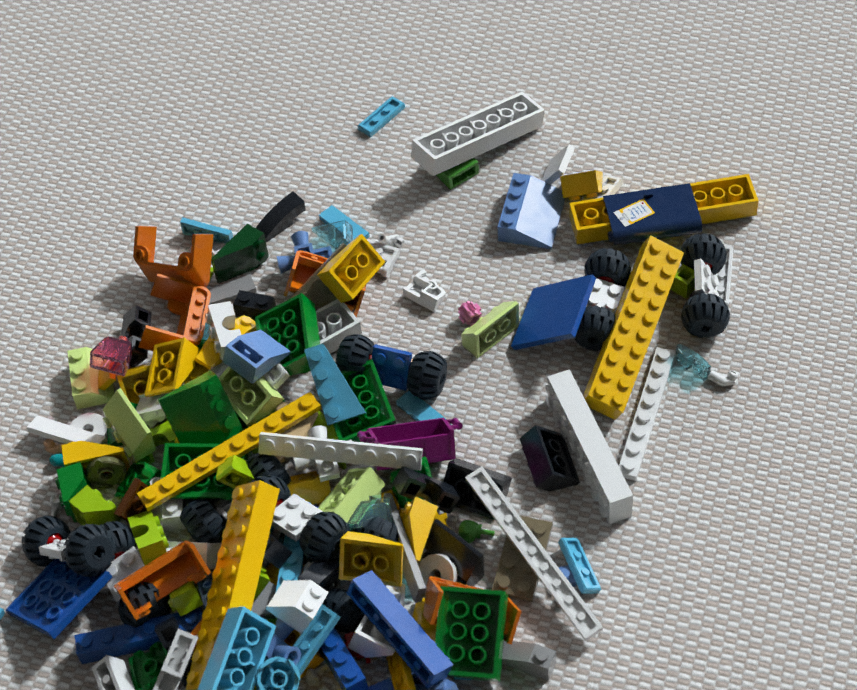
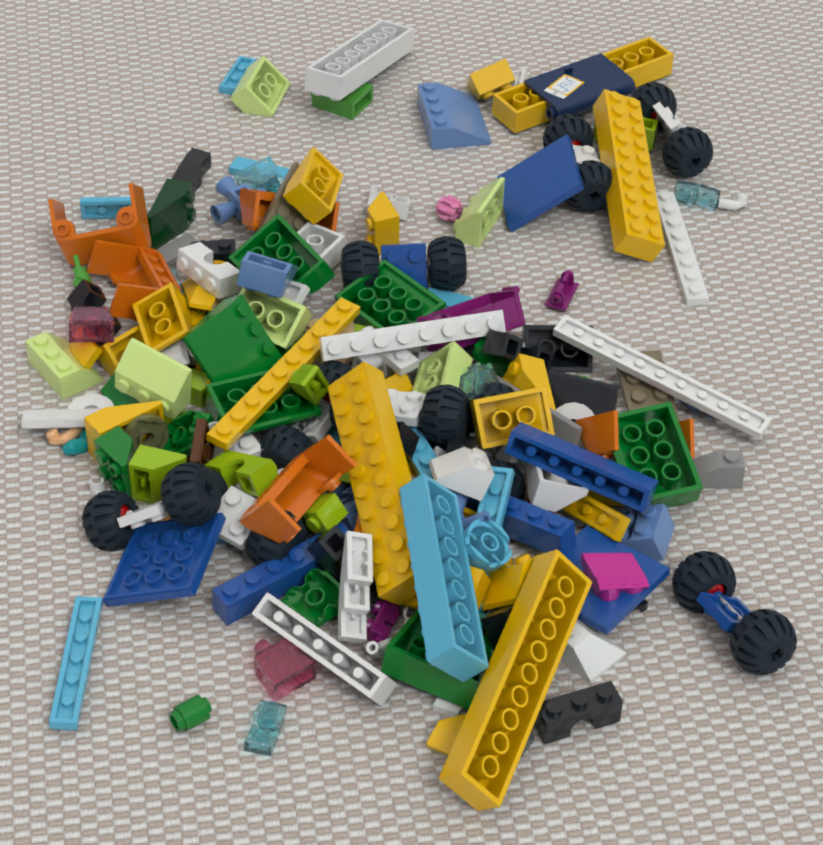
camera: 30 degrees left, 10 degrees down
(145, 300) = (79, 272): none -> bright green piece
(332, 388) = (362, 286): medium azure wing -> none
(388, 138) = (260, 88): none -> yellowish green slope
(398, 317) = (382, 222): none -> yellow slope
(517, 428) = (562, 291): none -> magenta hinge
(548, 459) = (612, 306): black slope -> none
(558, 165) = (457, 69): white tile -> none
(579, 566) = (697, 374): medium azure tile -> none
(589, 447) = (651, 281): white brick -> none

